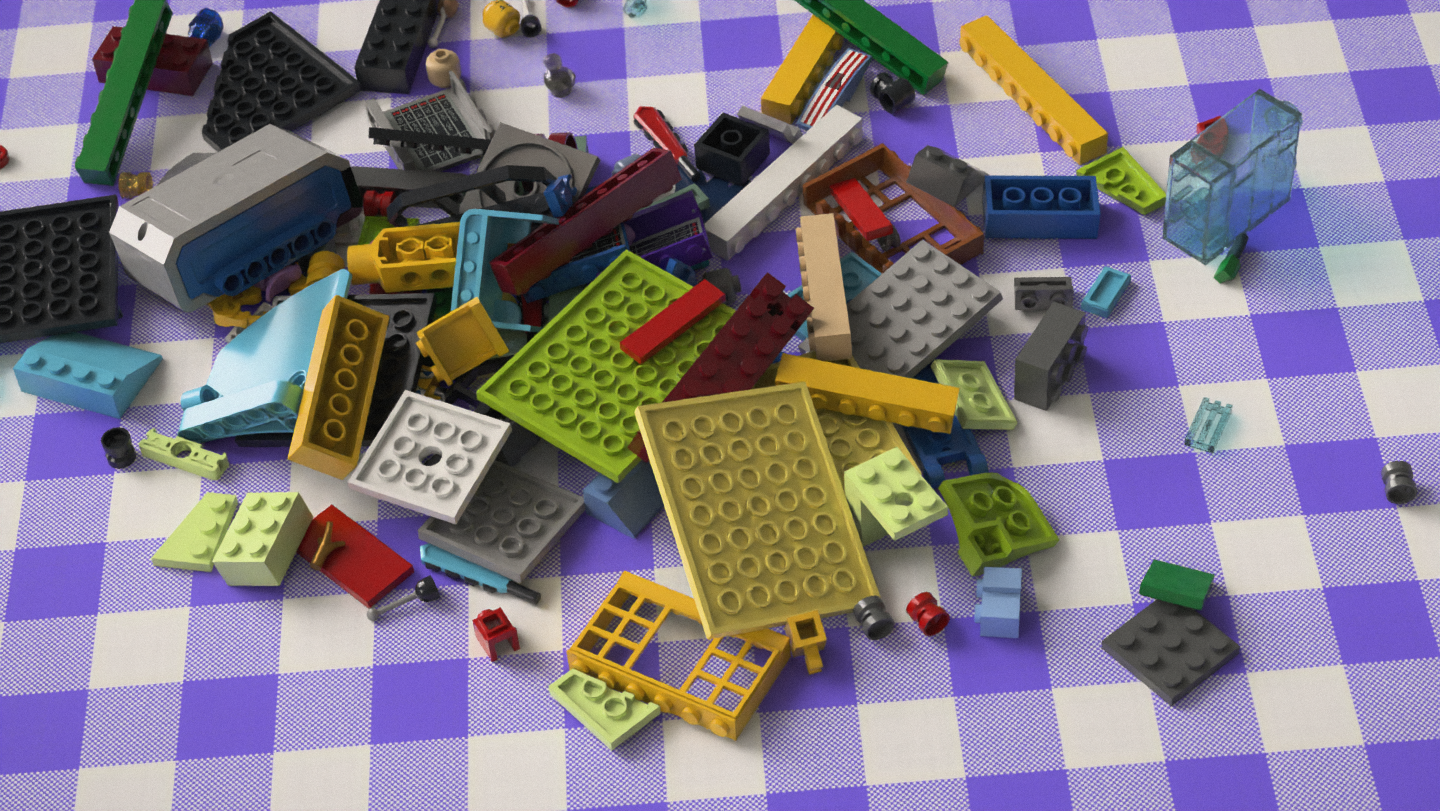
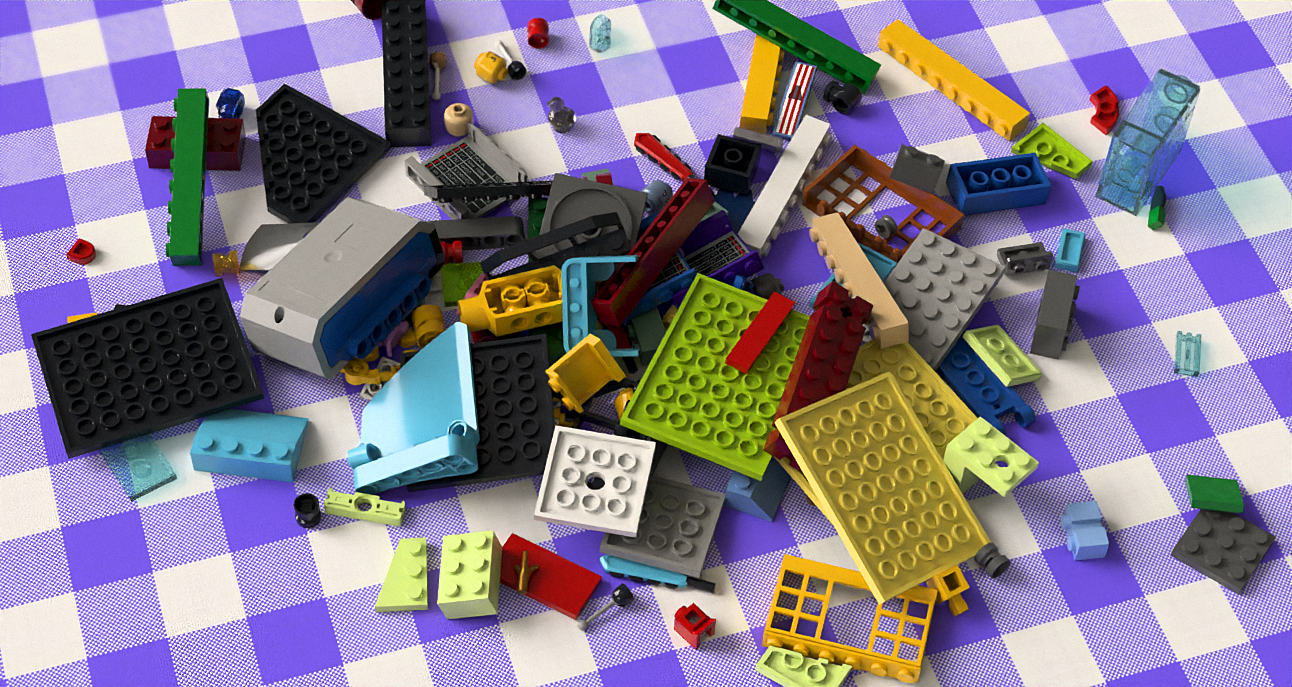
camera: 20 degrees left, 5 degrees up
(338, 388) = (498, 432): yellow brick -> none
(559, 195) = (631, 233): blue plate -> none
(861, 209) = (858, 205): red tile -> none
(872, 393) = (933, 370): yellow brick -> none
(924, 610) = (1032, 550): red wheel -> none
(995, 520) = (1064, 464): lime slope -> none

